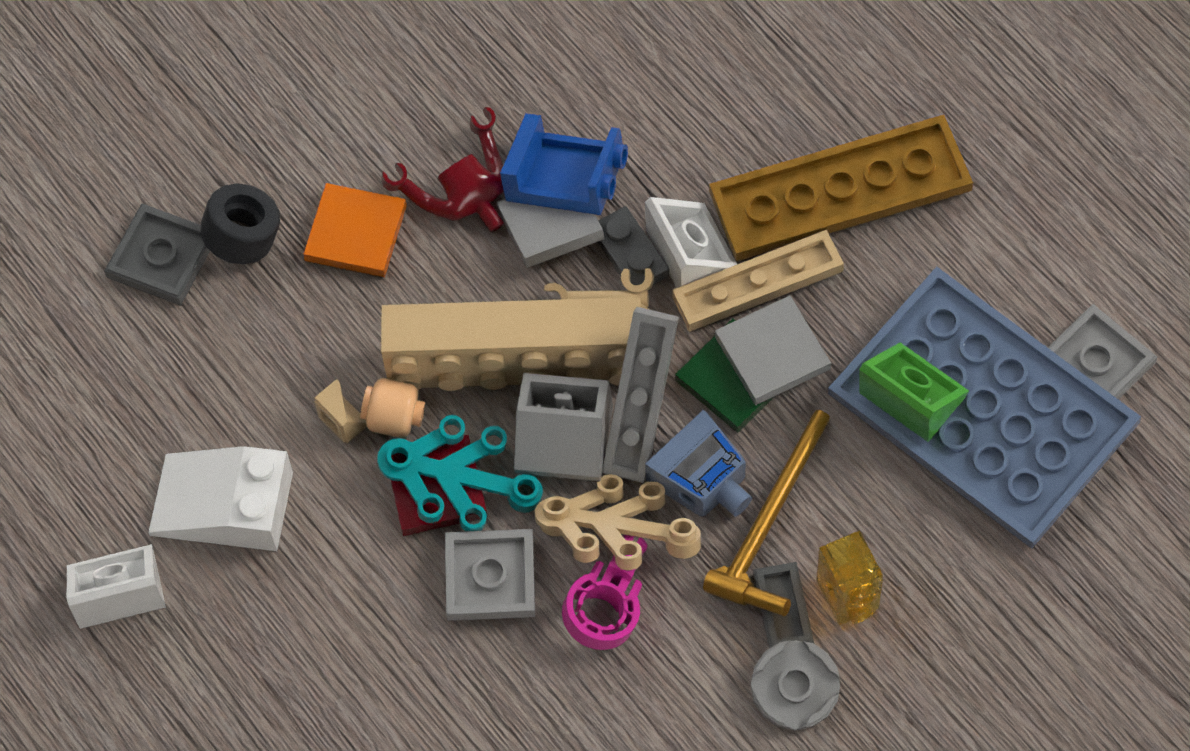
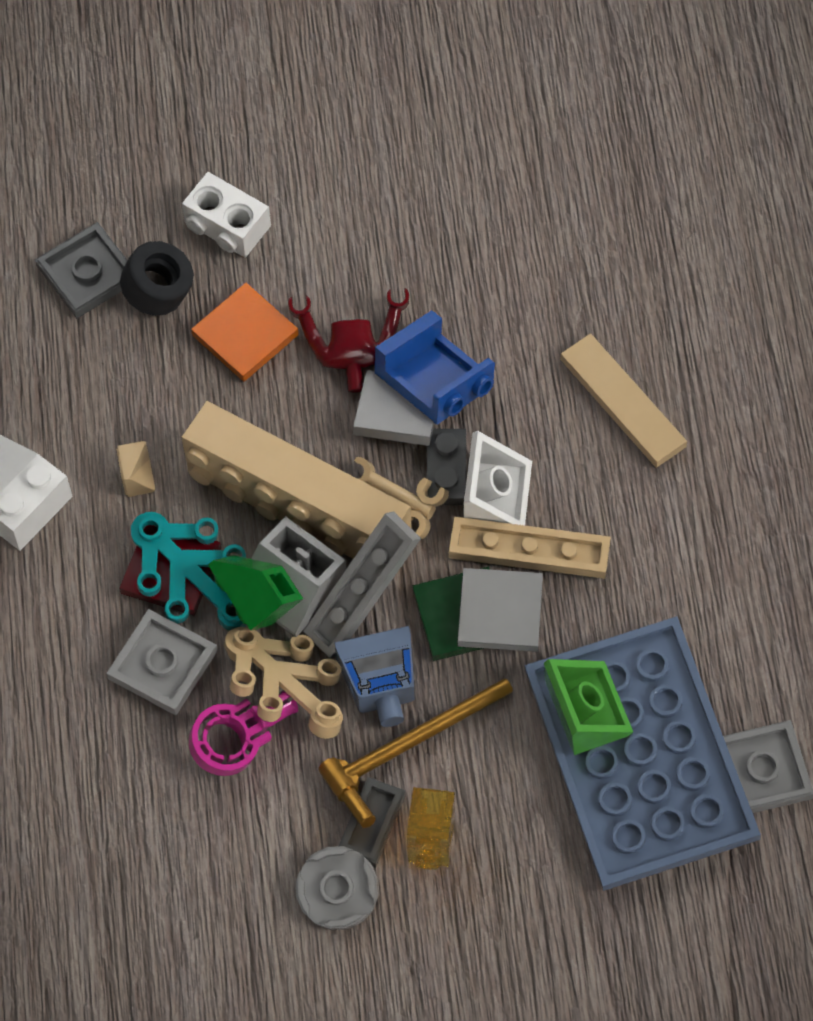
camera: 30 degrees right, 0 degrees up
(266, 121) = (230, 209): none -> white brick
(392, 408) = (174, 487): light nougat head -> none
(541, 453) = (256, 588): none -> green slope
(750, 103) = (623, 400): none -> tan tile
(840, 187) = (648, 508): pearl gold plate -> none

